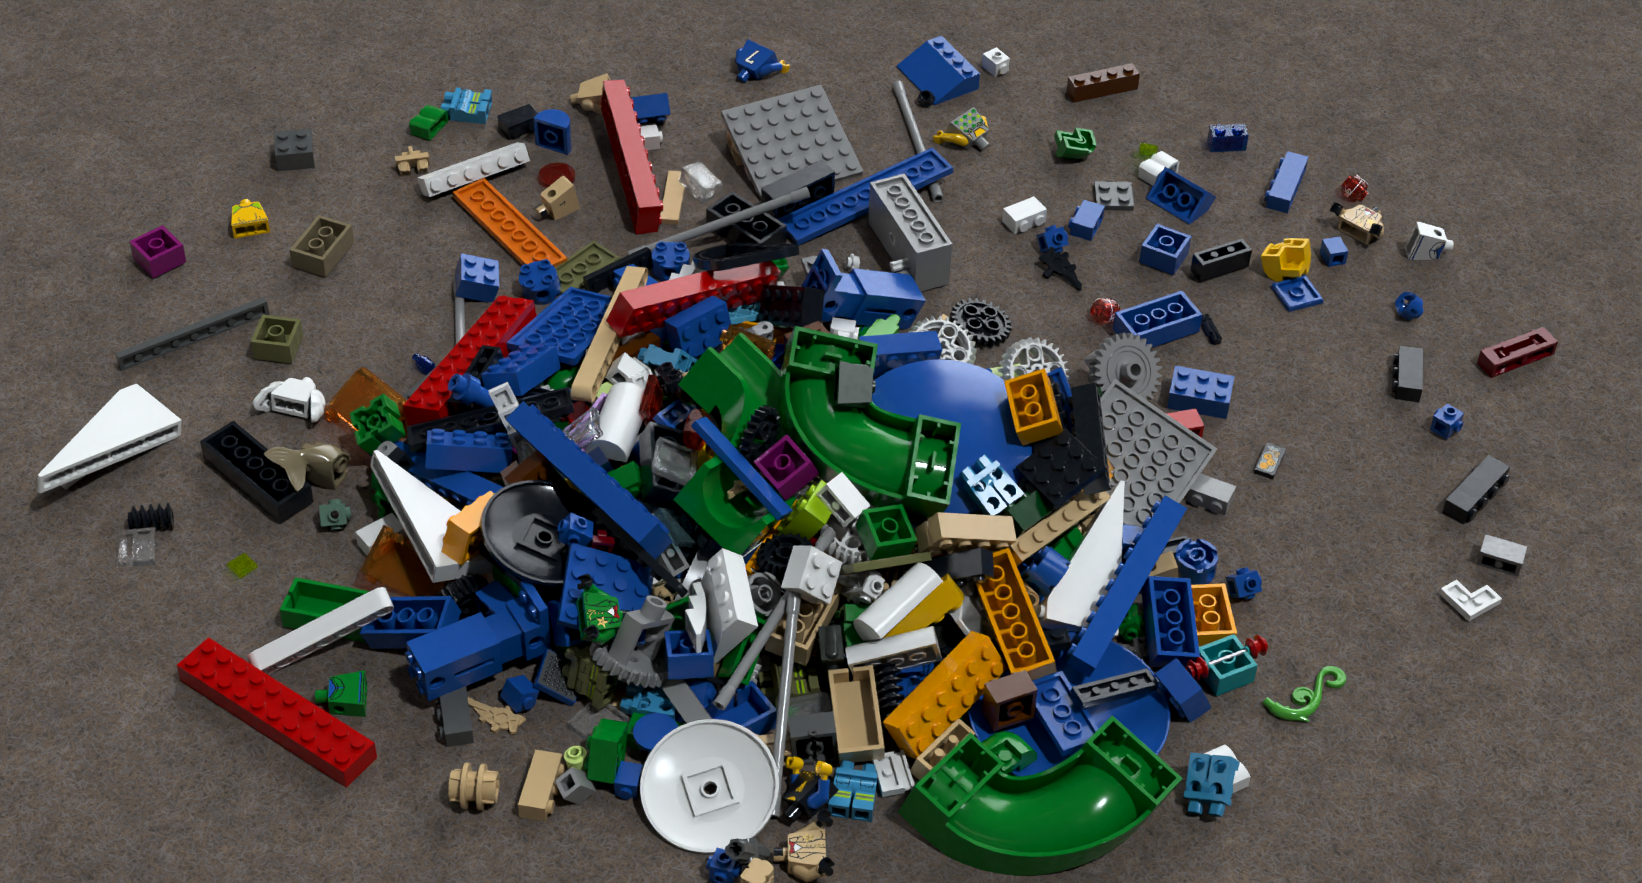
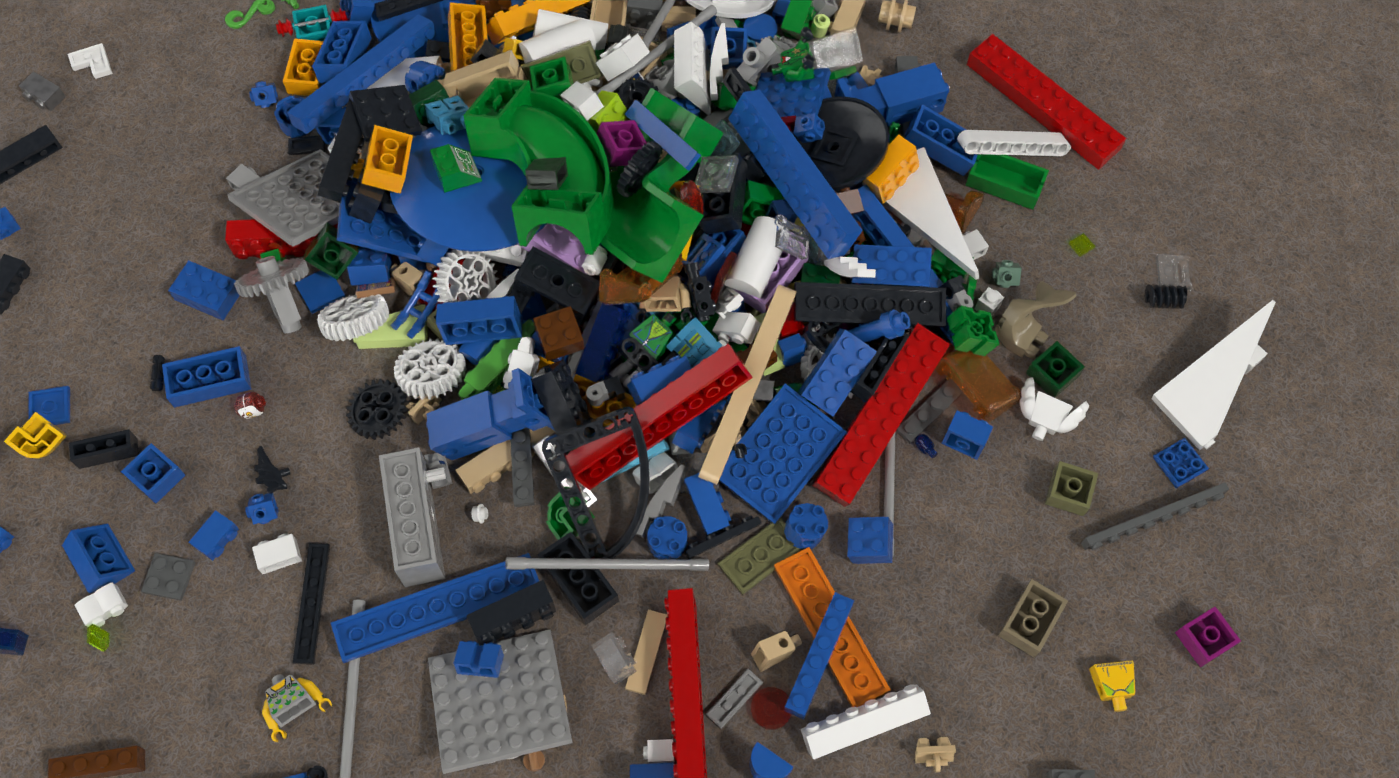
camera: 170 degrees left, 20 degrees up
(160, 381) = (1180, 462): none -> blue tile
(244, 464) = (1084, 333): black brick -> none
(285, 429) = (1055, 369): none -> dark green brick
(345, 694) = (991, 108): green torso -> none
(355, 485) = (989, 301): none -> white brick
(384, 360) = (967, 434): none -> blue brick
(517, 196) = (819, 656): none -> blue brick
(547, 678) = (842, 72): none -> green tile
(553, 724) = (837, 50): none -> clear plate
(592, 177) = (734, 698): none -> light grey tile
(809, 154) = (478, 660): none -> blue brick
(960, 405) = (454, 167): none -> green slope
(980, 195) = (311, 604): none -> black tile
(1076, 144) = (177, 654): green brick -> none
(1270, 461) = (180, 216): tile -> none

